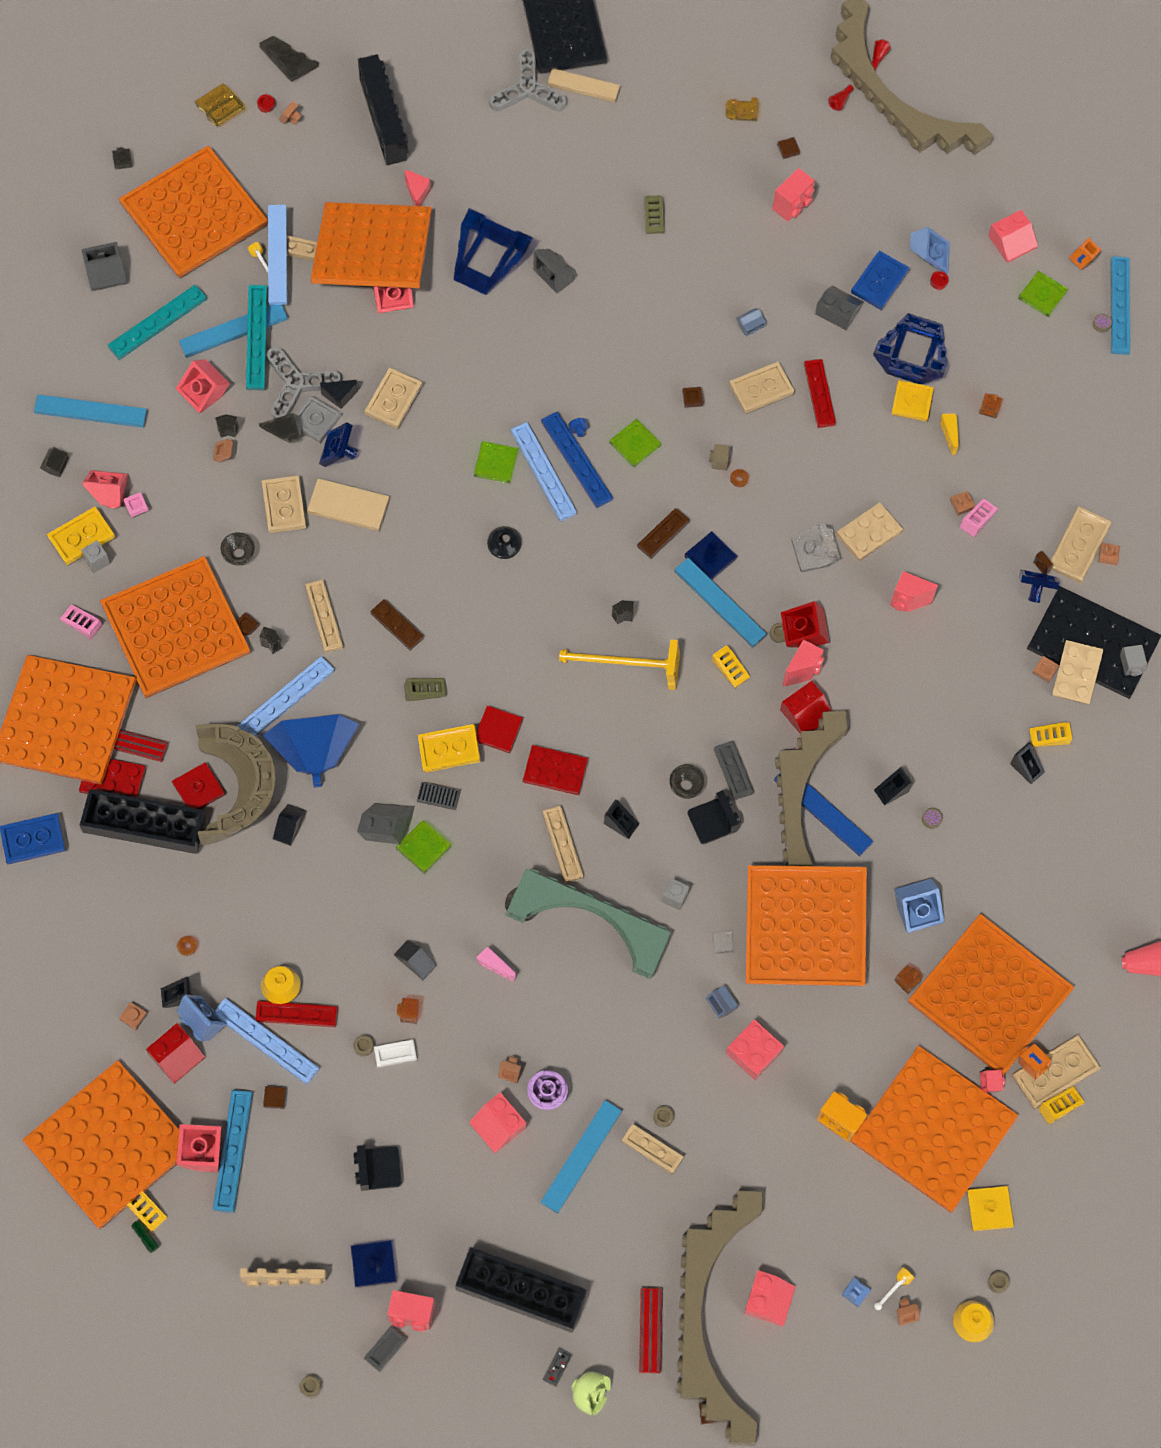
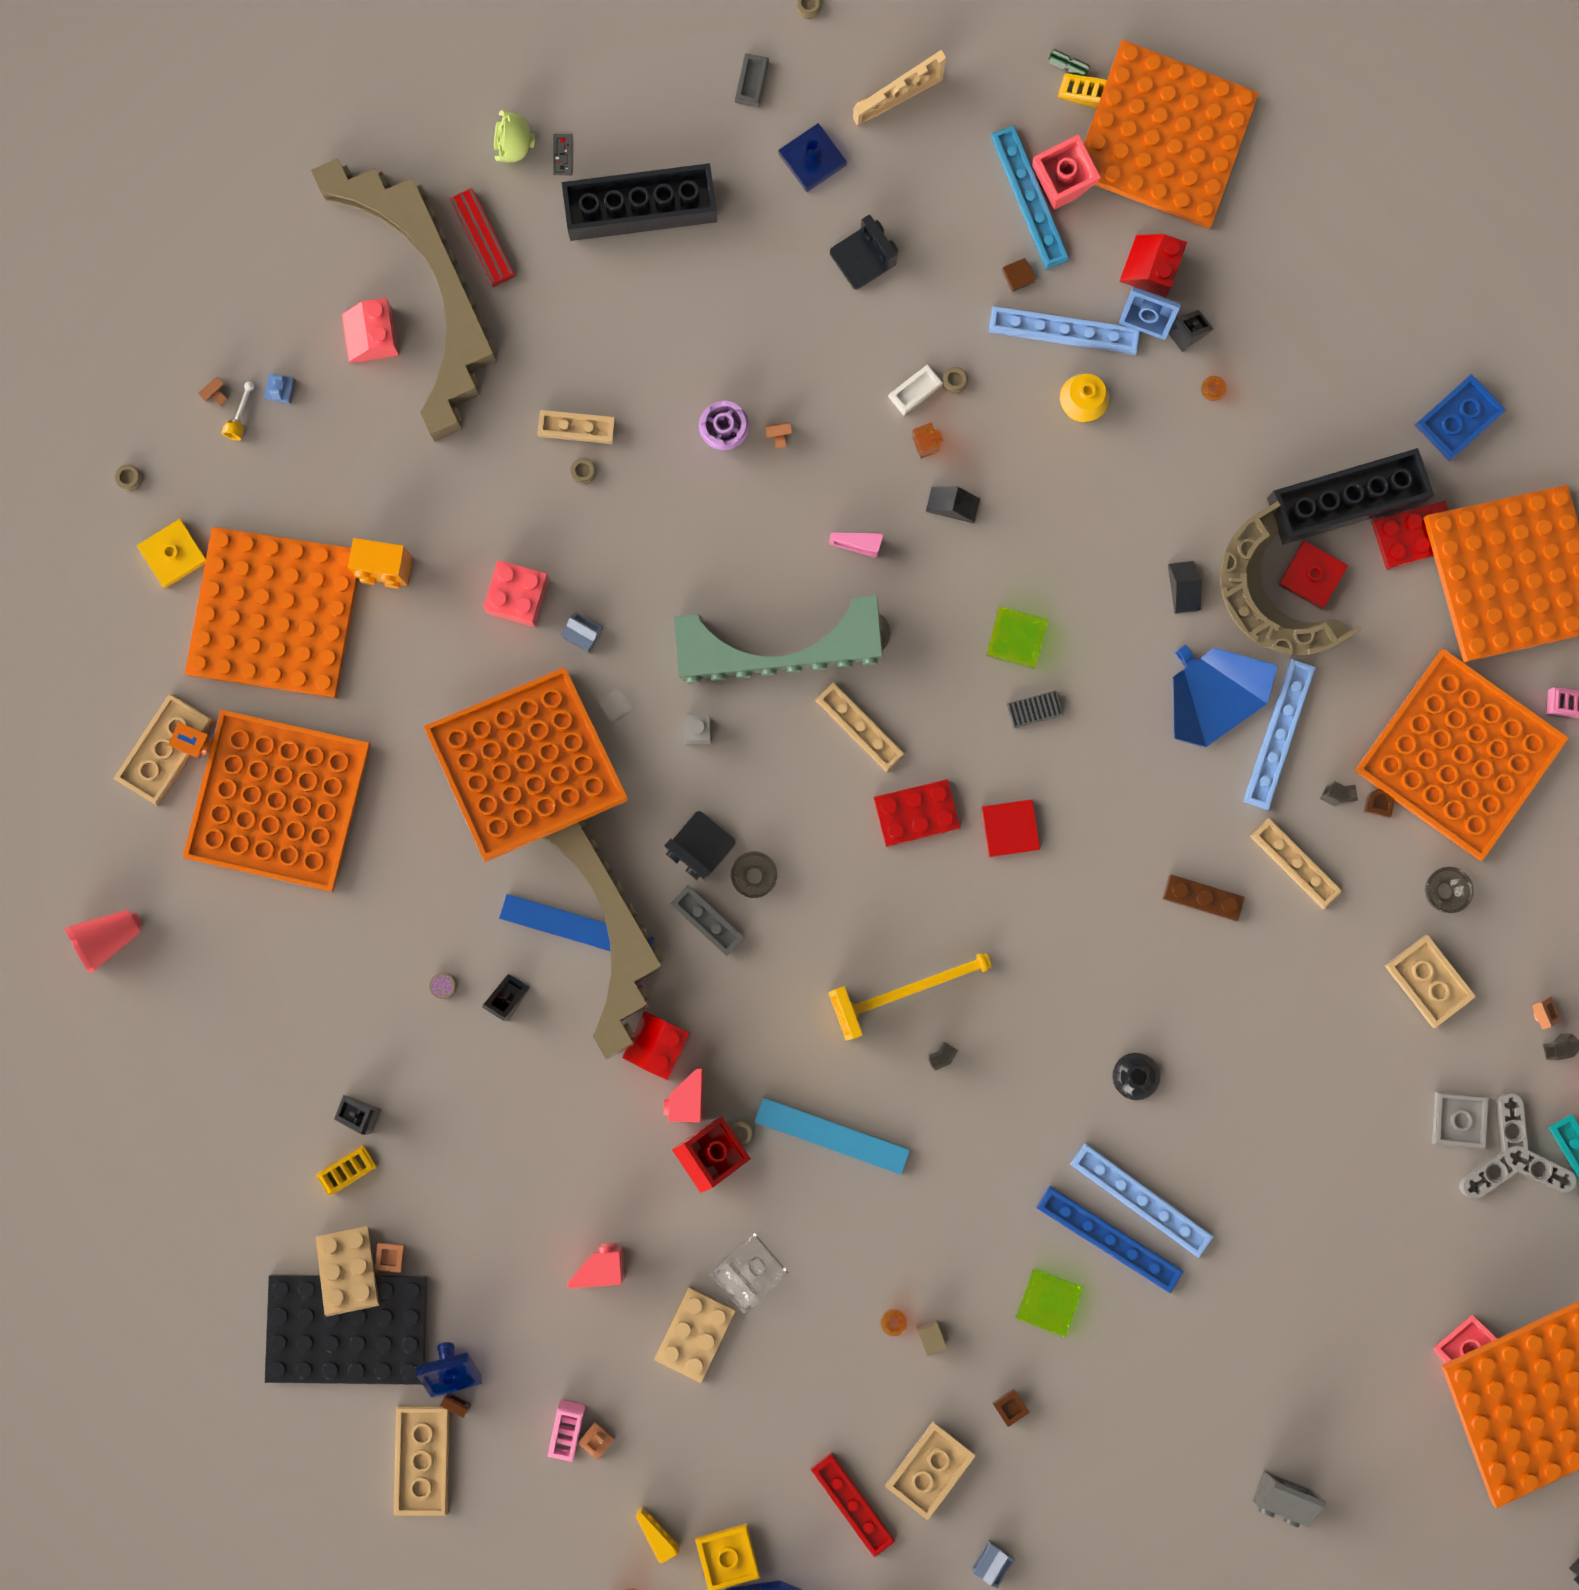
camera: 155 degrees right, 15 degrees up
(133, 1016) = (1224, 283): nougat plate -> none
(140, 746) = (1408, 590): red tile -> none
(285, 427) = (1490, 1081): clear smoke slope -> none
(296, 1014) = (1047, 376): red tile -> none
(337, 445) = (1412, 1091): clear blue tile -> none
(339, 391) = (1453, 1171): black slope -> none
(348, 504) = (1352, 1024): tan tile -> none
(384, 823) = (1077, 639): dark grey slope -> none
(393, 398) = (1383, 1200): tan plate -> none
(411, 1310) = (744, 119): coral brick -> none
(417, 186) = (1529, 1531): coral slope -> none
(424, 682) = (1146, 828): olive slope -> none
(449, 748) = (1053, 770): yellow plate -> none
(493, 232) = (1386, 1516): clear blue windscreen -> none
(495, 462) = (1206, 1181): clear neon green plate -> none
(498, 1123) = (759, 370): coral slope -> none
(578, 426) = (1131, 1285): blue tile -> none
(581, 1157) = (650, 381): dark azure tile -> none
(620, 820) = (806, 787): black slope -> none
(663, 533) = (949, 1192): reddish brown plate -> none
(711, 555) = (875, 1193): clear blue tile -> none
(735, 663) = (795, 1064): yellow slope -> none
(908, 979) = (380, 768): clear orange plate -> none
(919, 905) = (408, 866): medium blue slope -> none
(973, 1321) = (136, 419): yellow cone -> none
(992, 1081) = (230, 695): coral plate -> none
(1051, 1112) = (133, 707): yellow slope -> none
(1109, 554) = (378, 1466): nougat tile -> none
(1133, 660) = (281, 1320): light grey brick -> none

